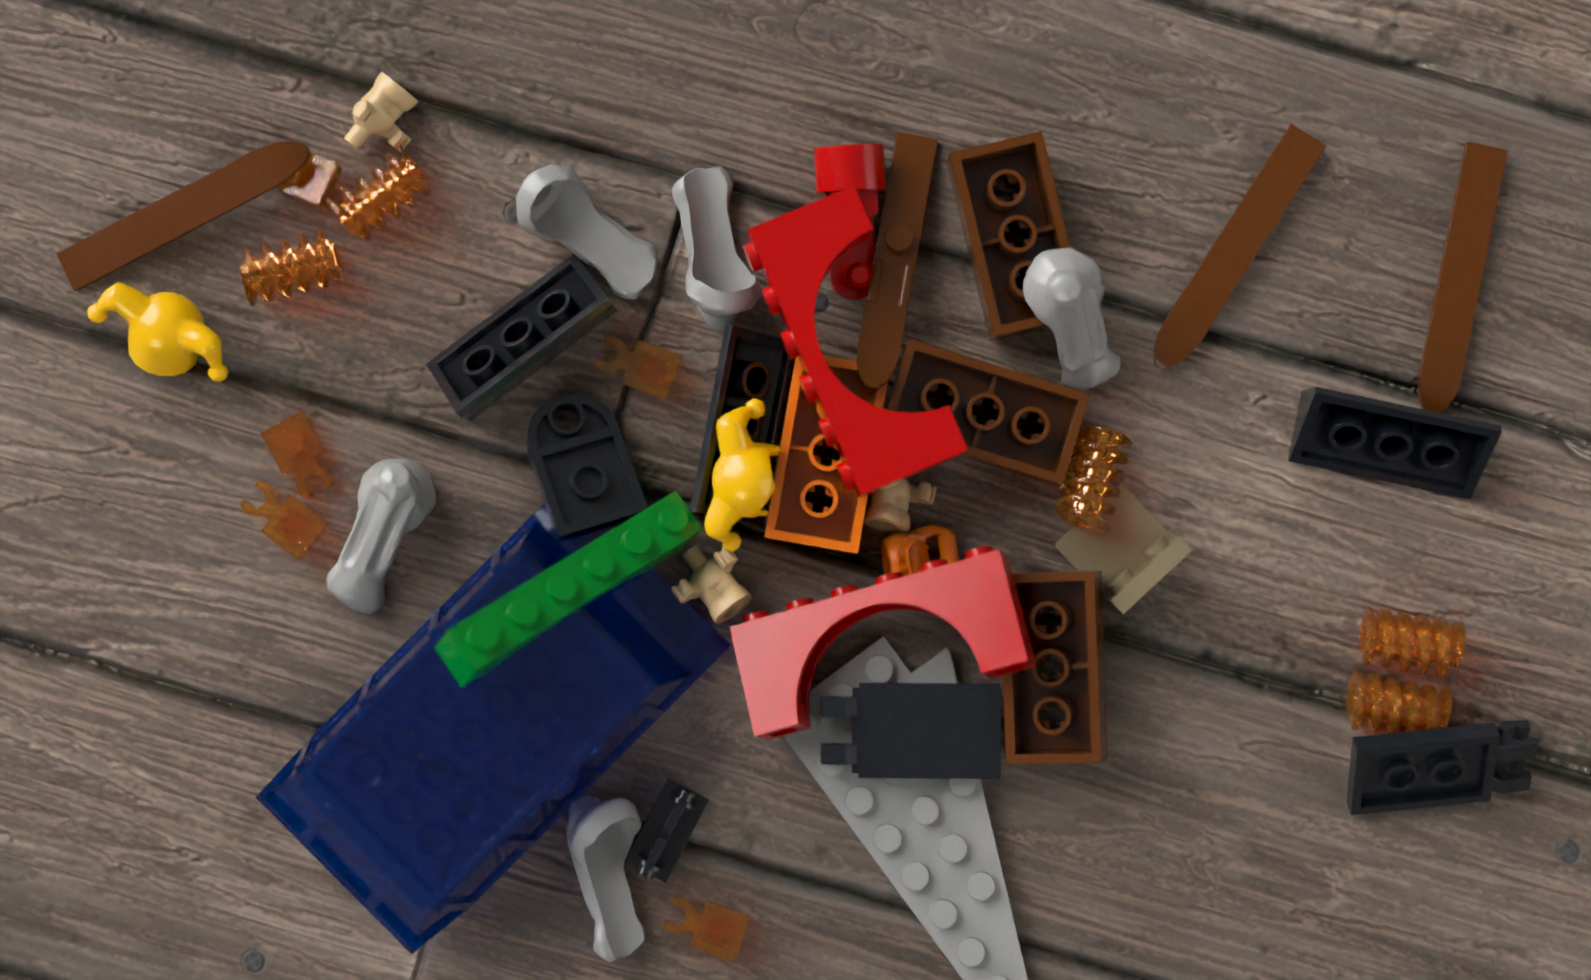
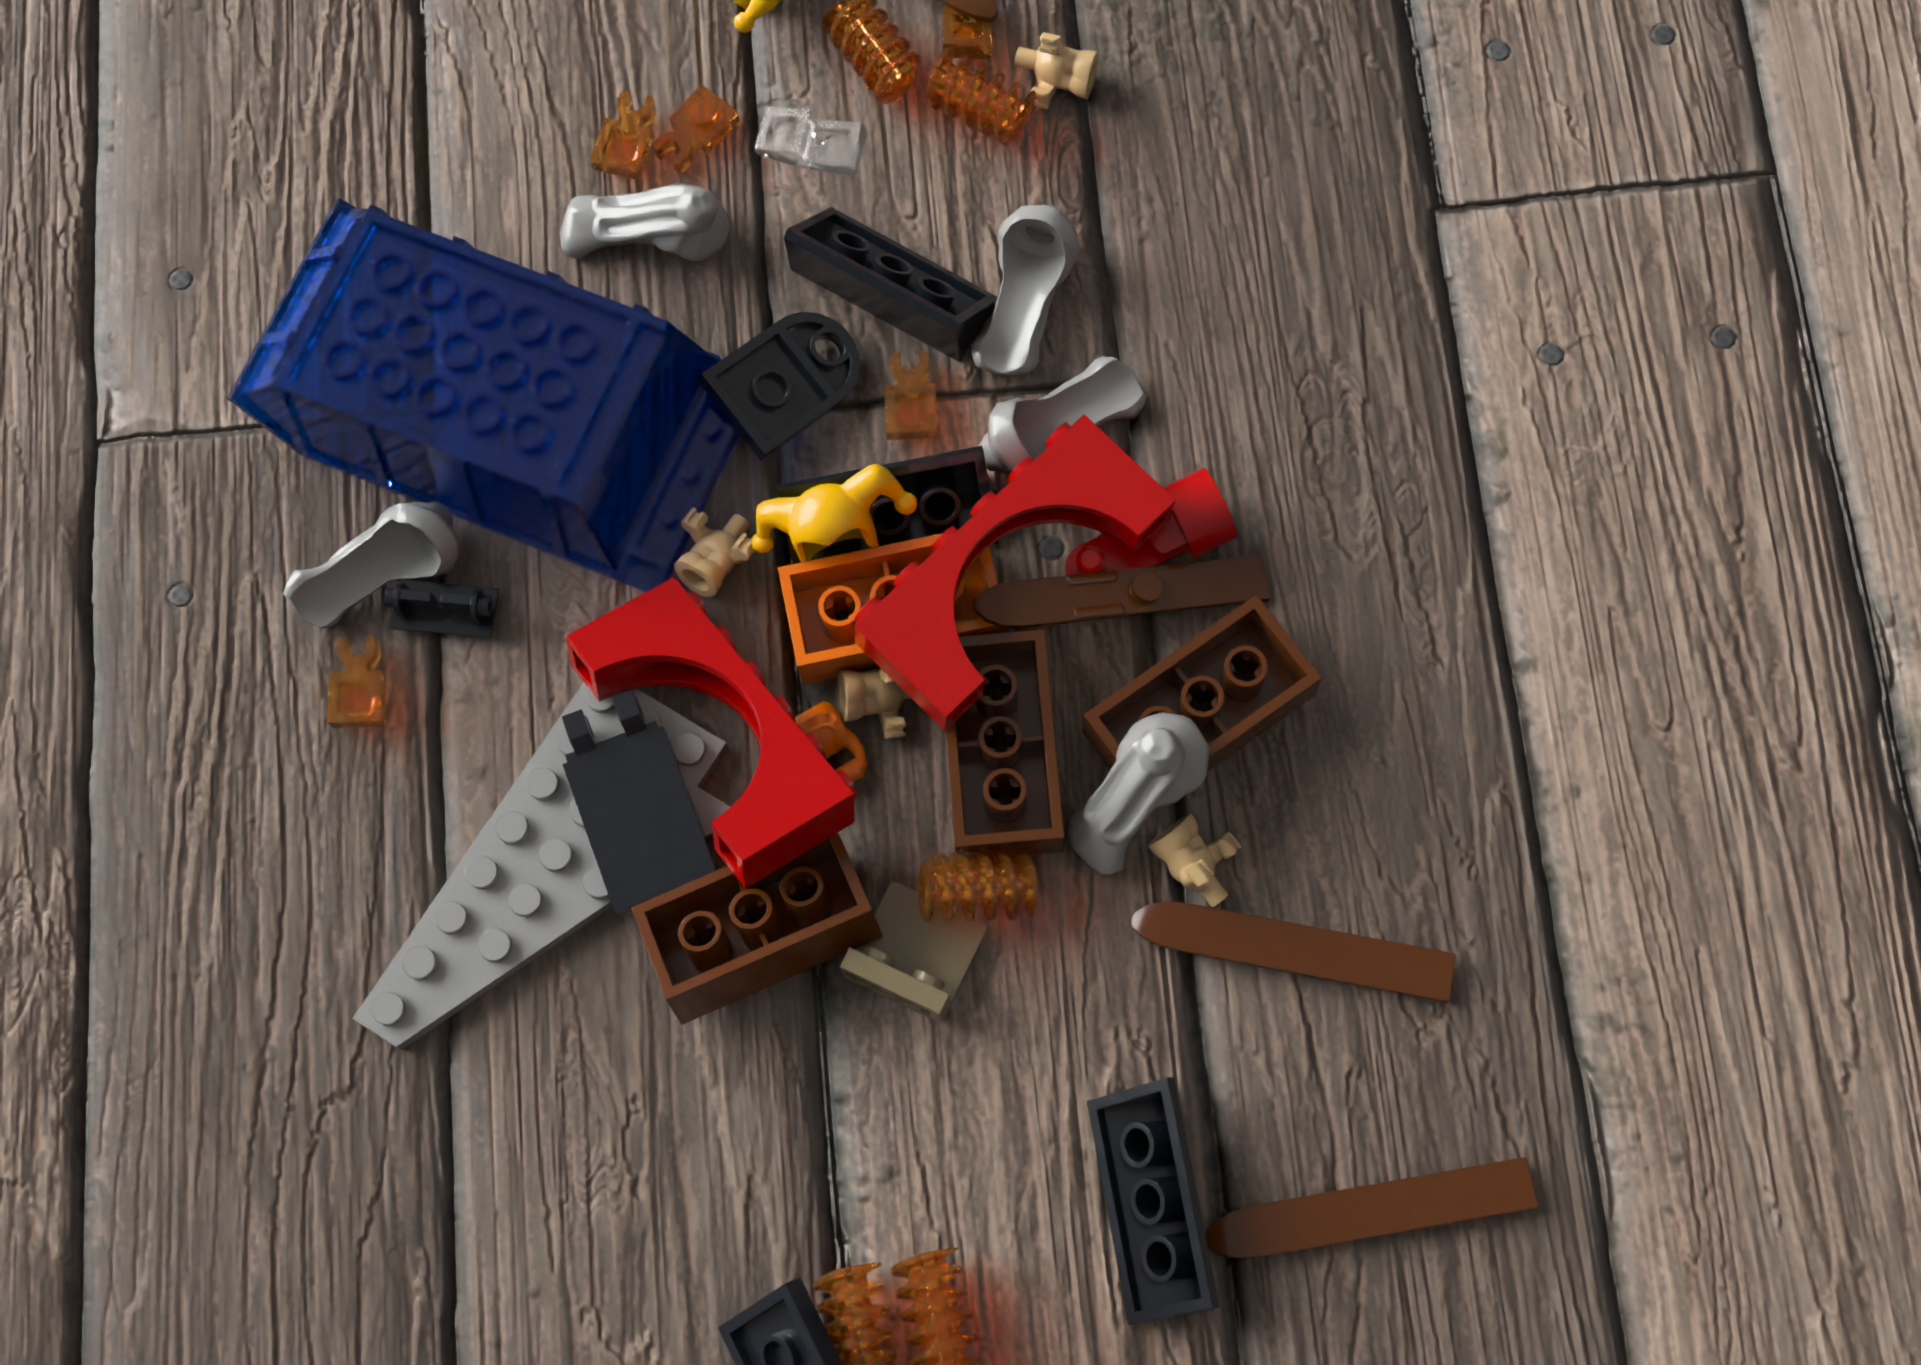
camera: 75 degrees right, 15 degrees down
(355, 357) = (809, 143): none -> clear slope
(551, 596) = (590, 336): green arch -> none
(1134, 297) = (1191, 859): none -> tan piece

